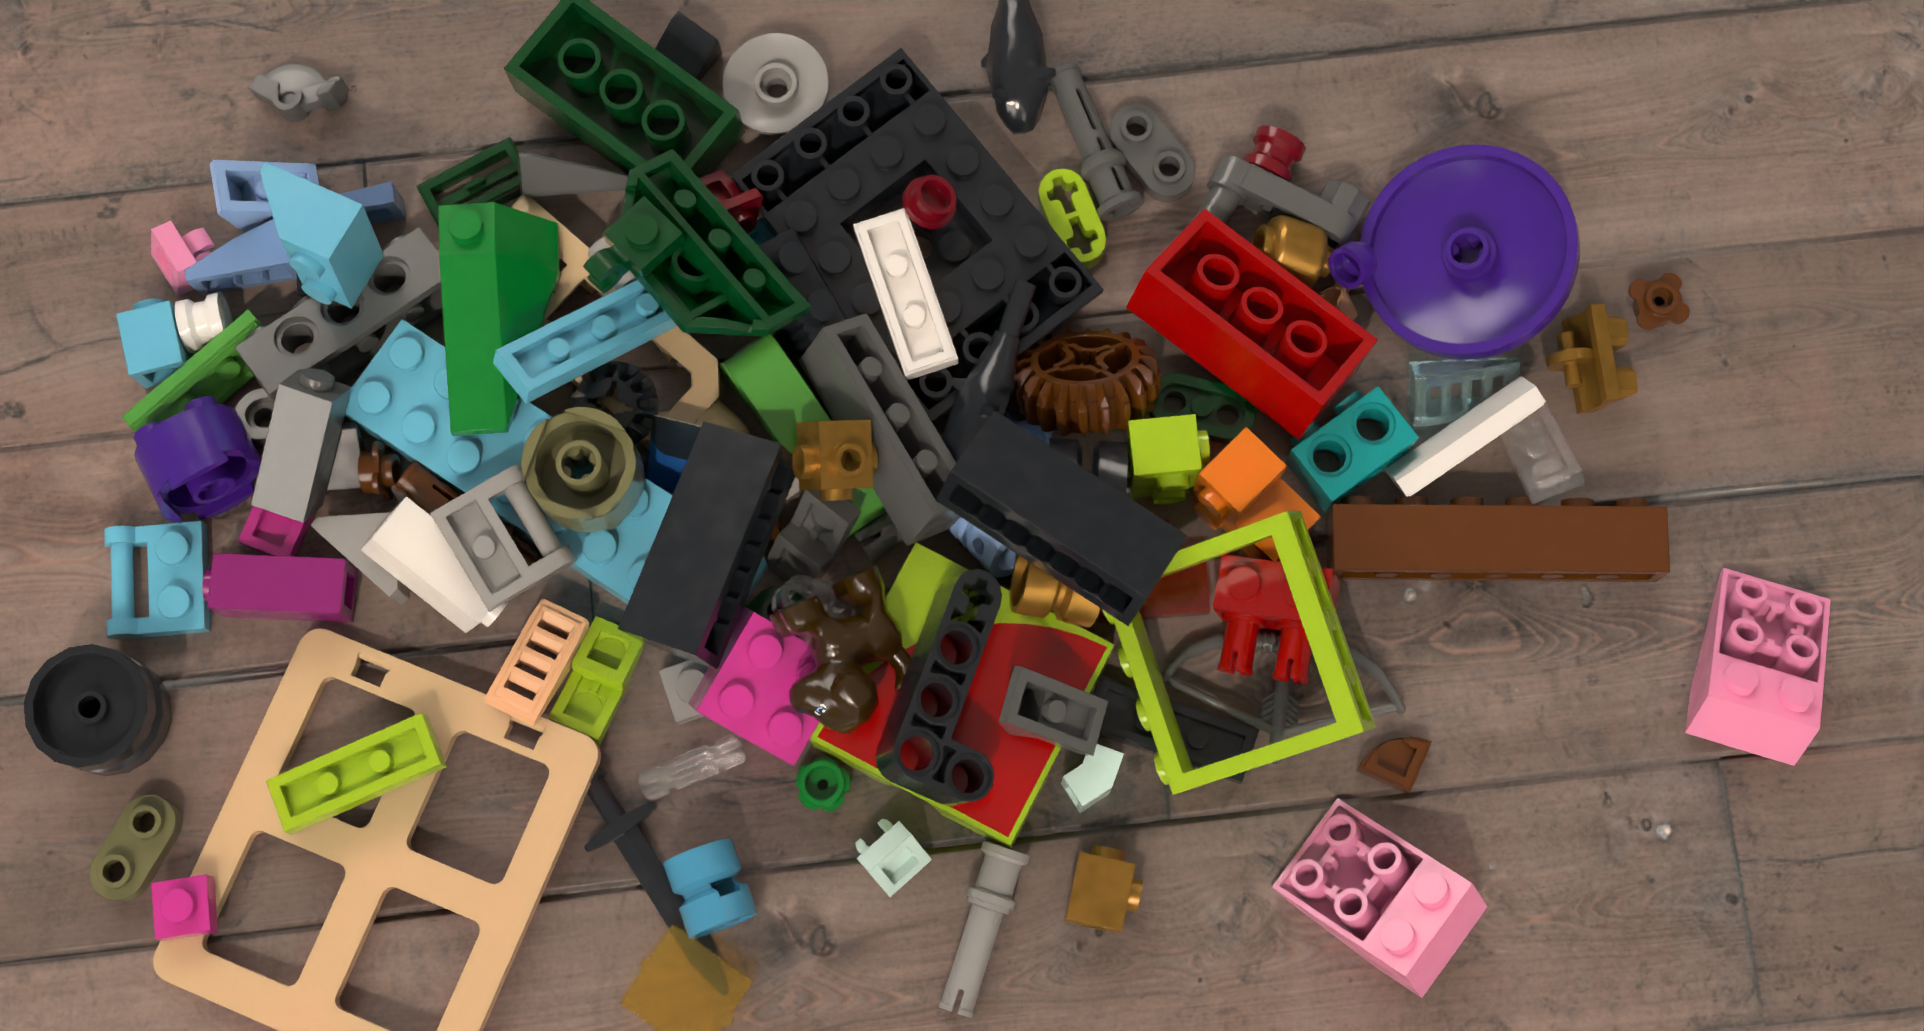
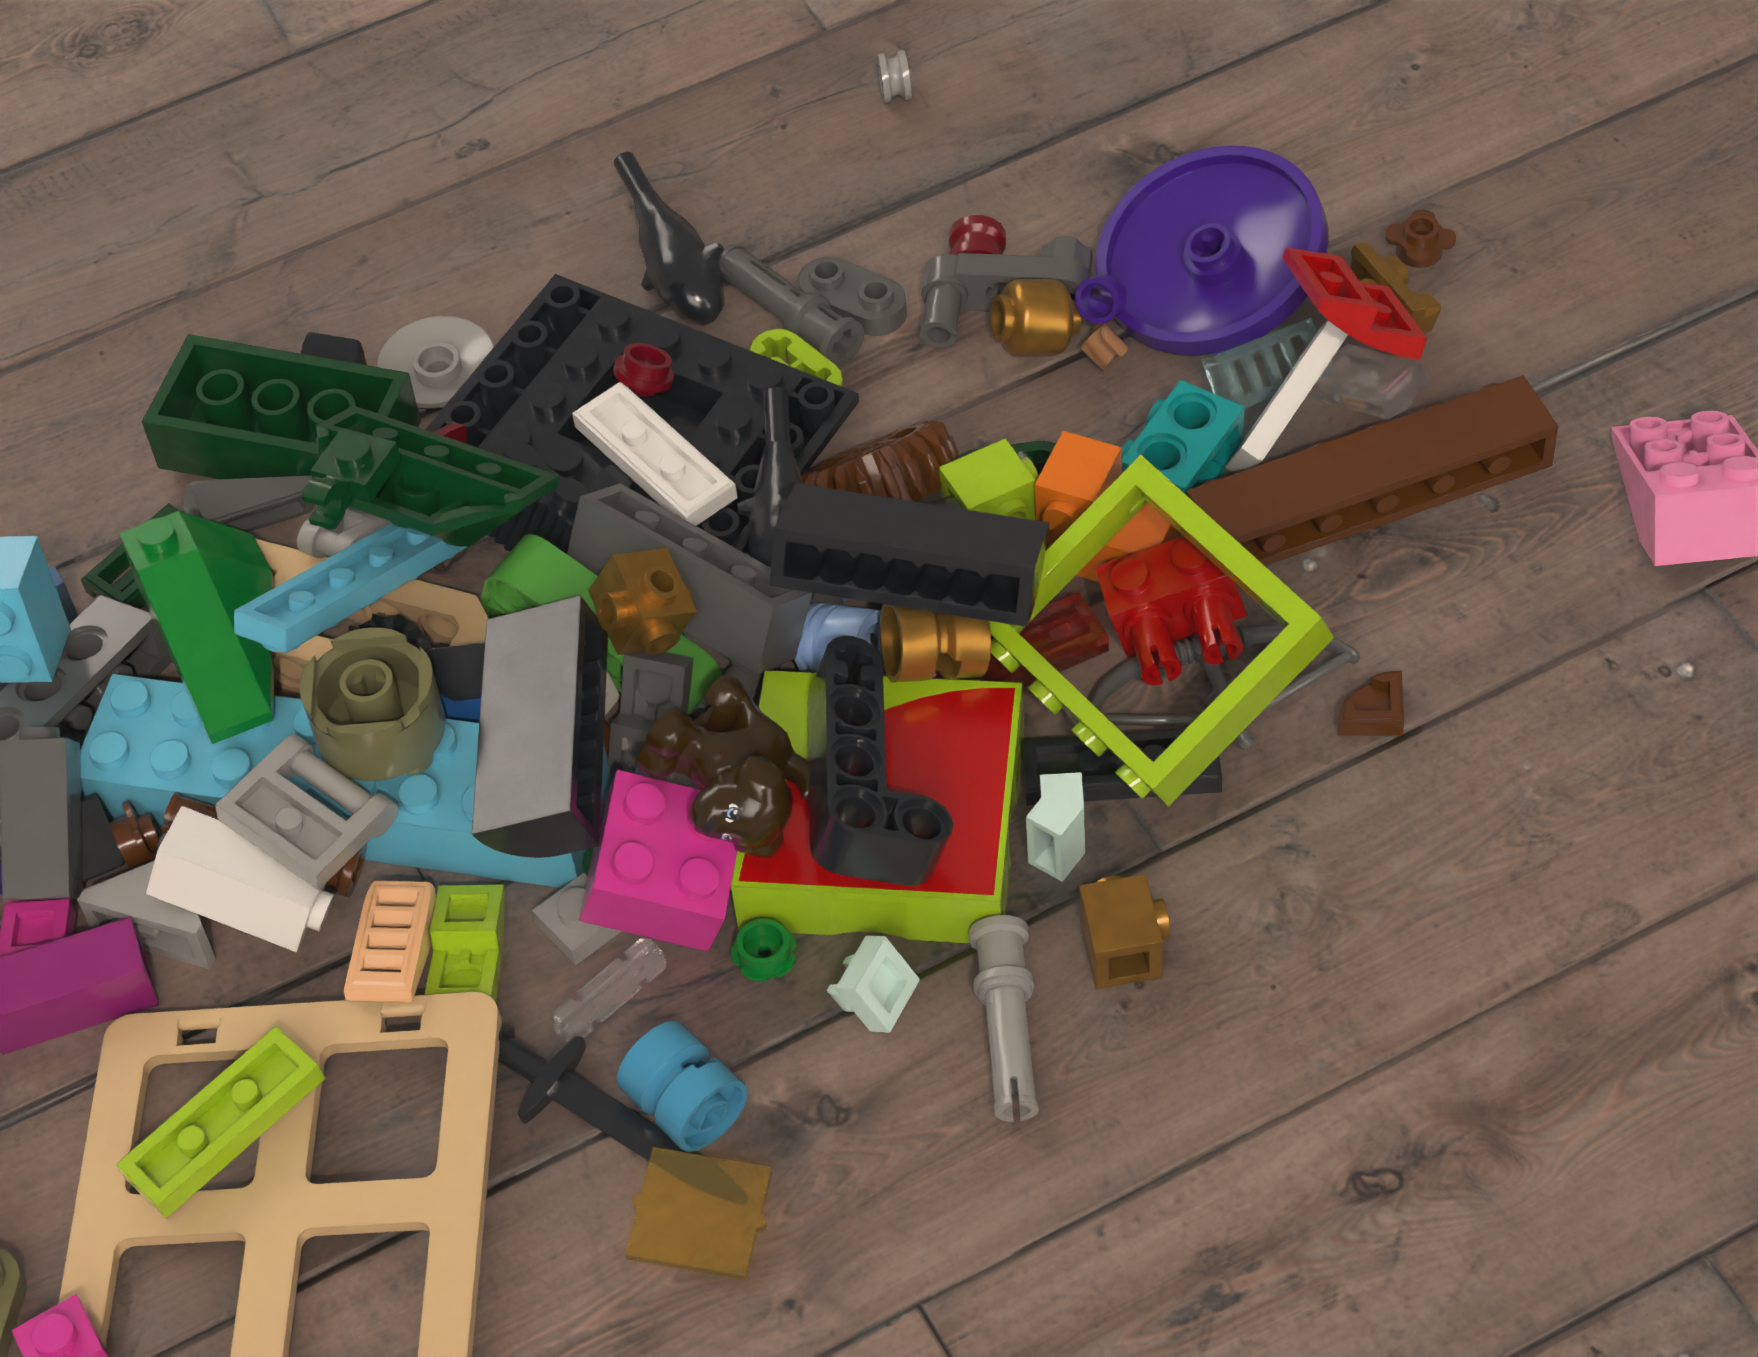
camera: 20 degrees left, 25 degrees down
(1052, 712) = (984, 741): dark grey slope -> none
(1250, 323) = (1022, 373): red brick -> none
(1381, 896) = (1429, 823): bright pink slope -> none
(1552, 391) = (1357, 308): none -> red slope

